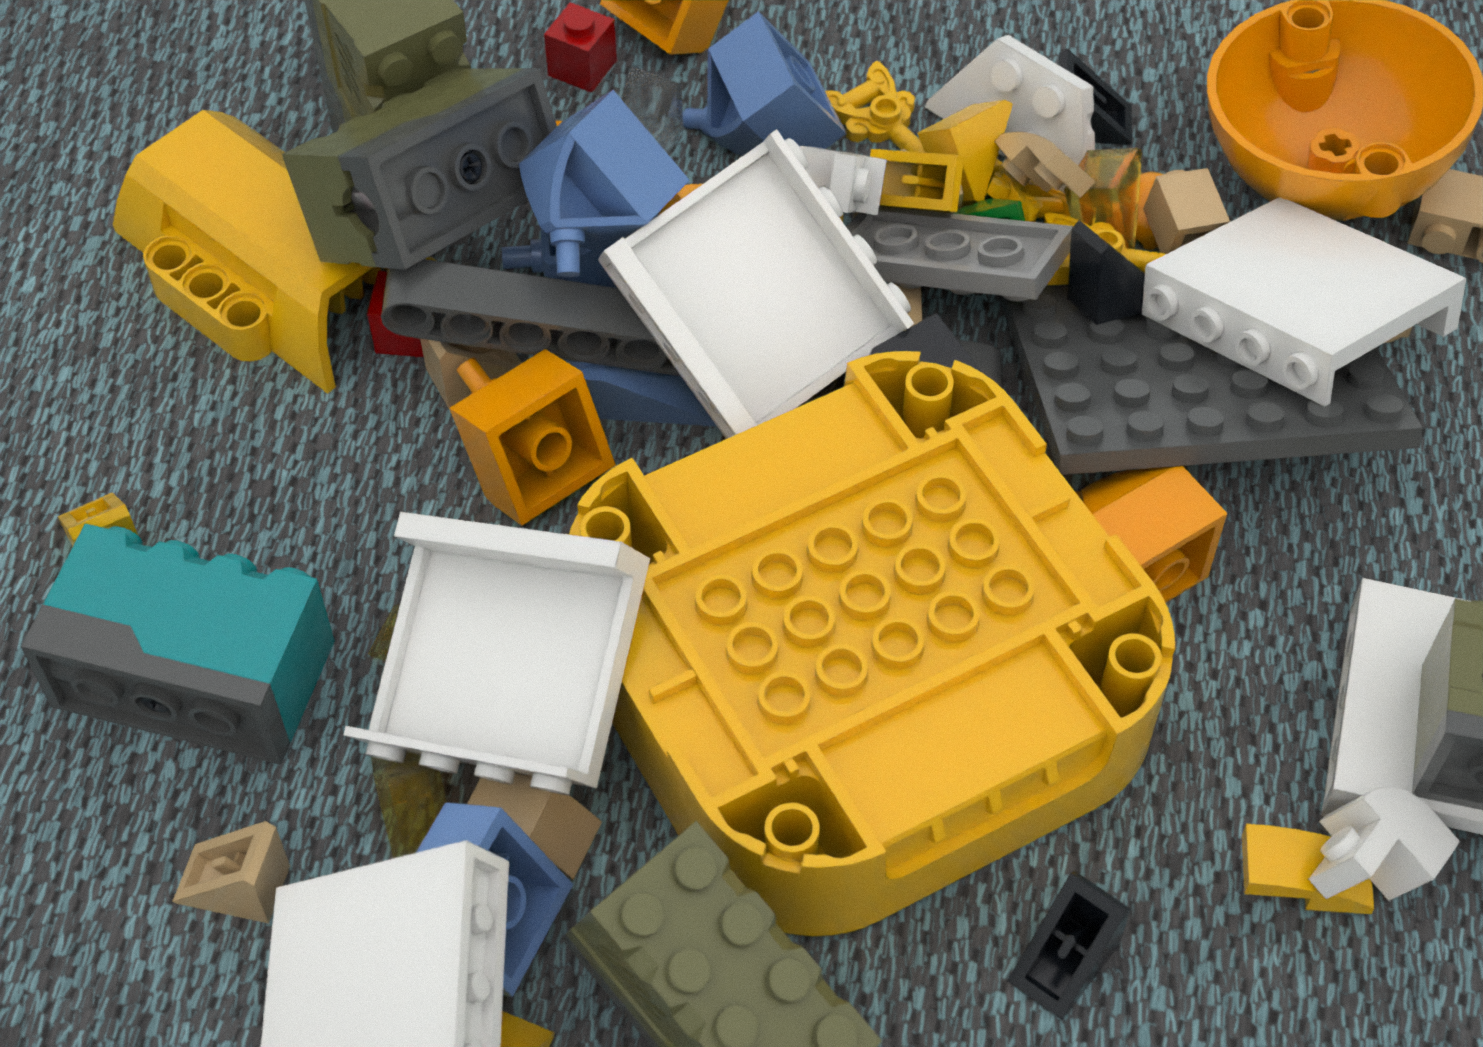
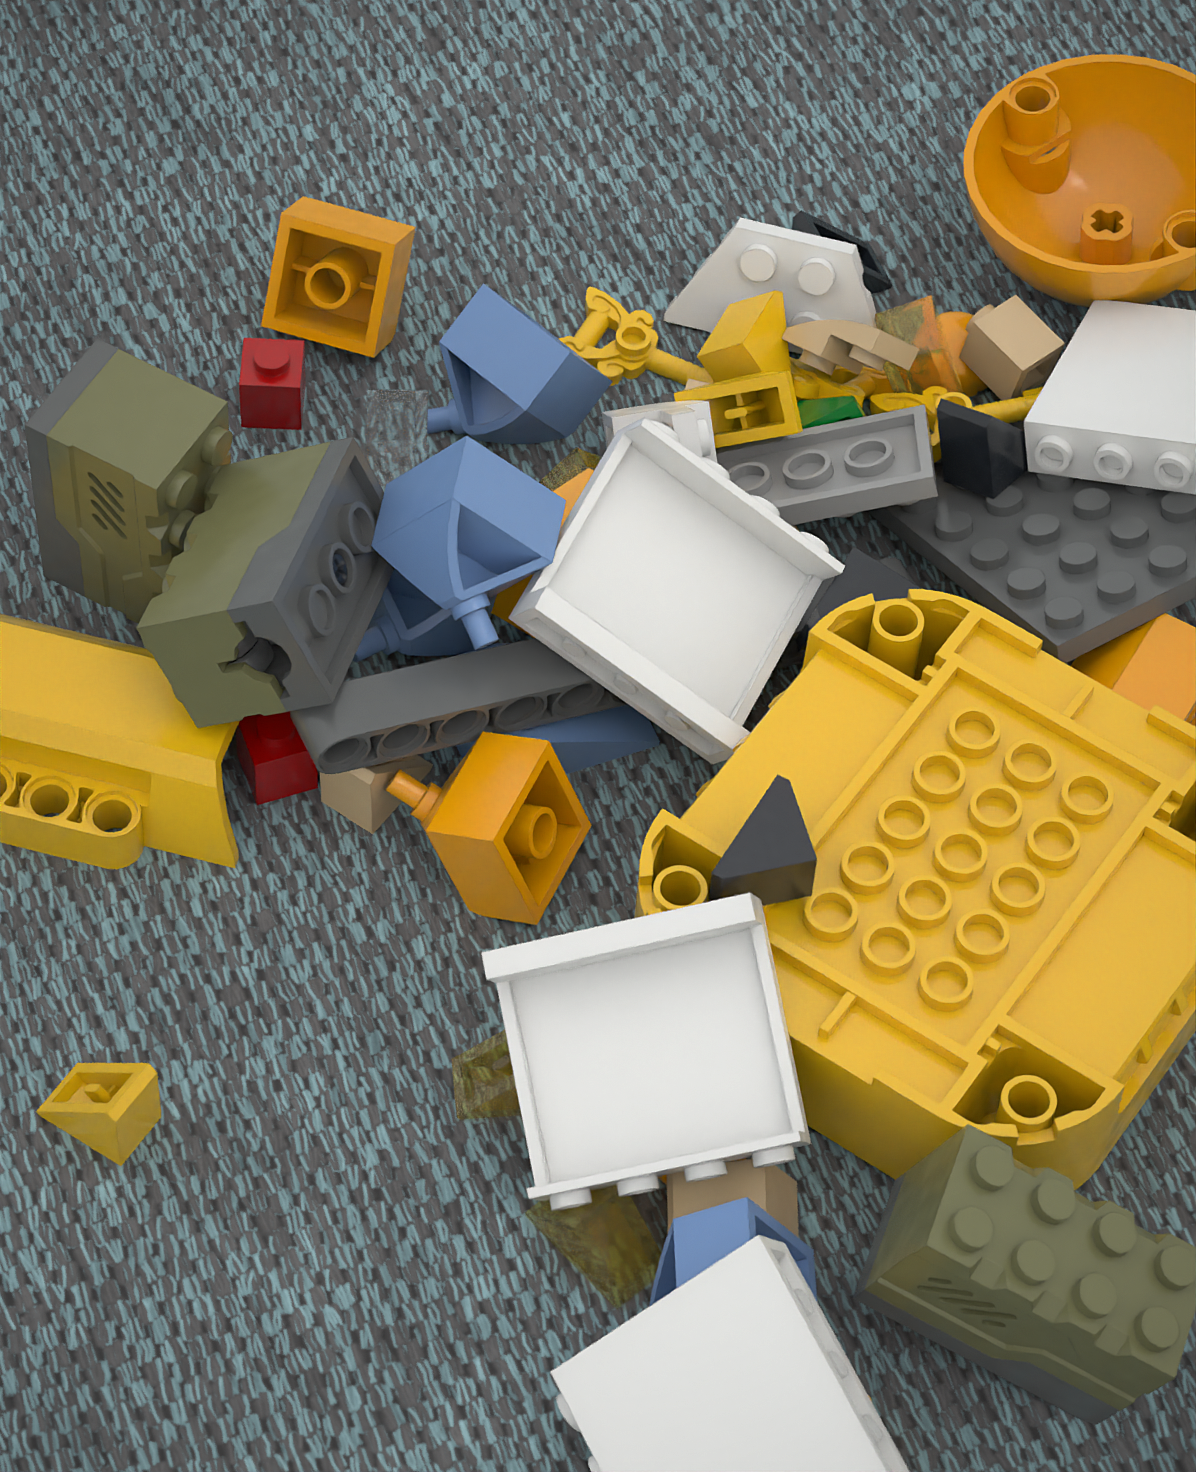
camera: 30 degrees left, 0 degrees up
(181, 642) = (291, 1180): piece -> none
(236, 873) = (476, 1382): tan slope -> none
(681, 523) = (770, 852): none -> black slope

